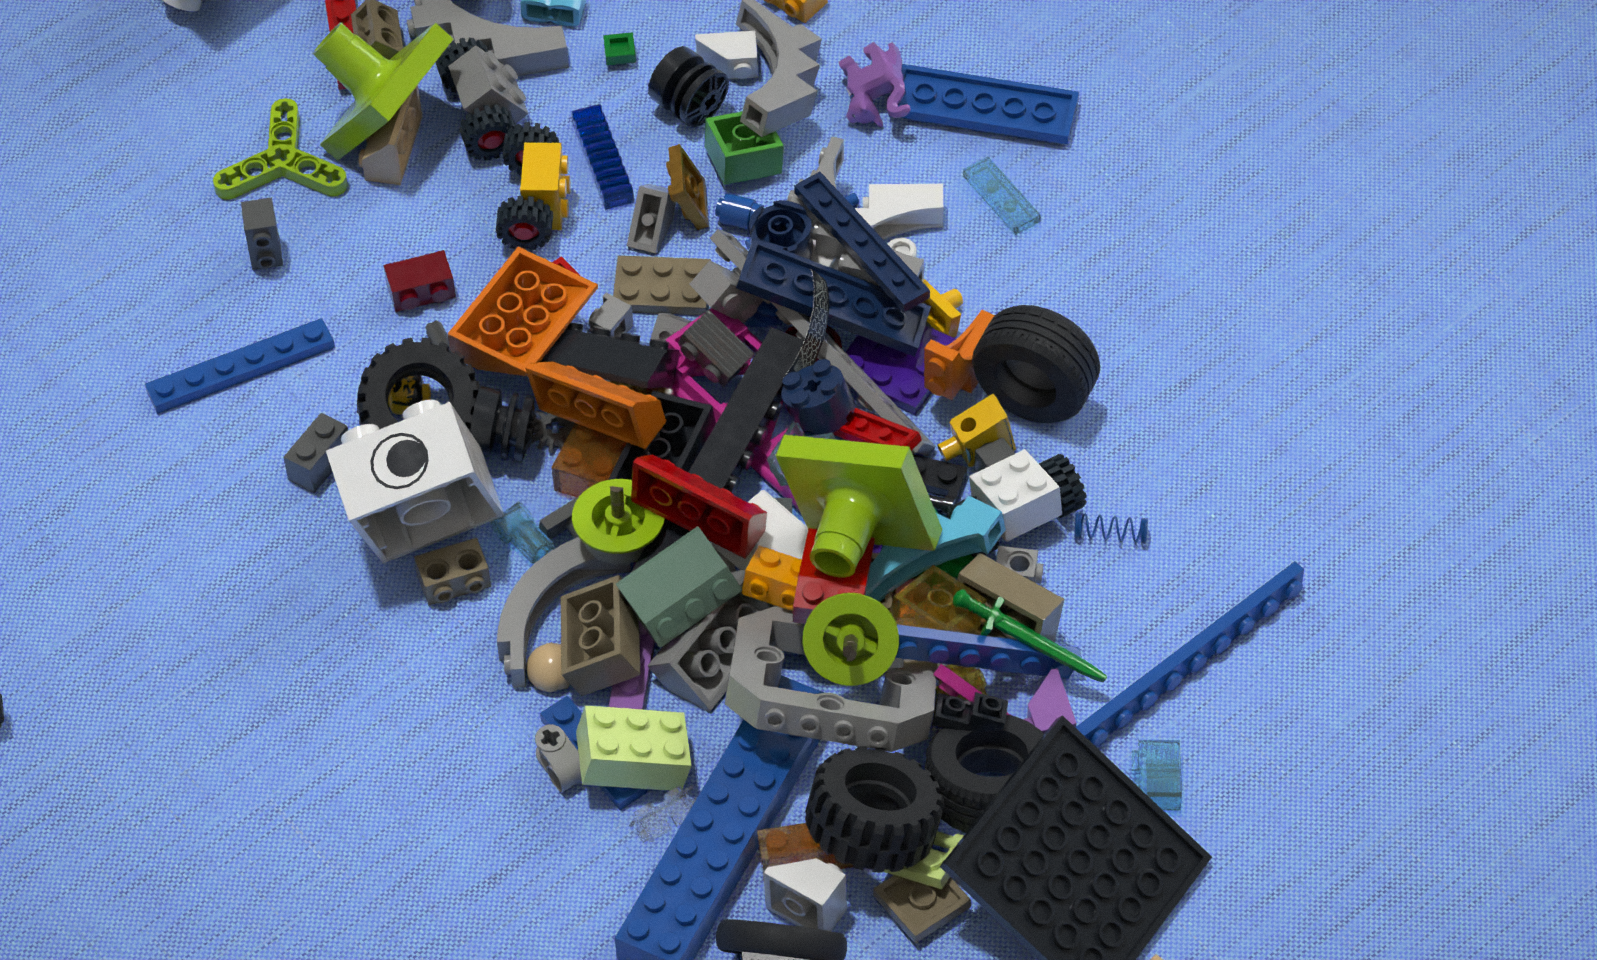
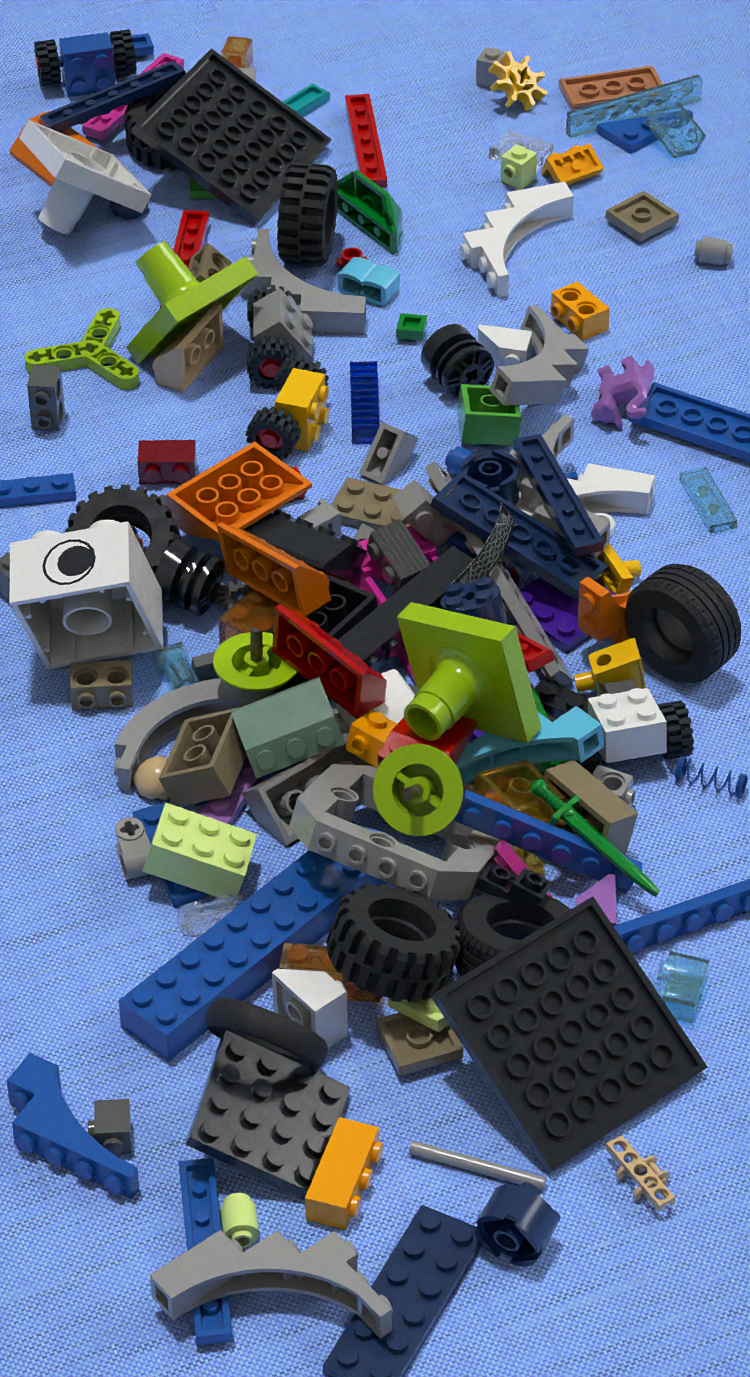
camera: 15 degrees right, 10 degrees down
(687, 187) = (426, 432): pearl gold plate -> none

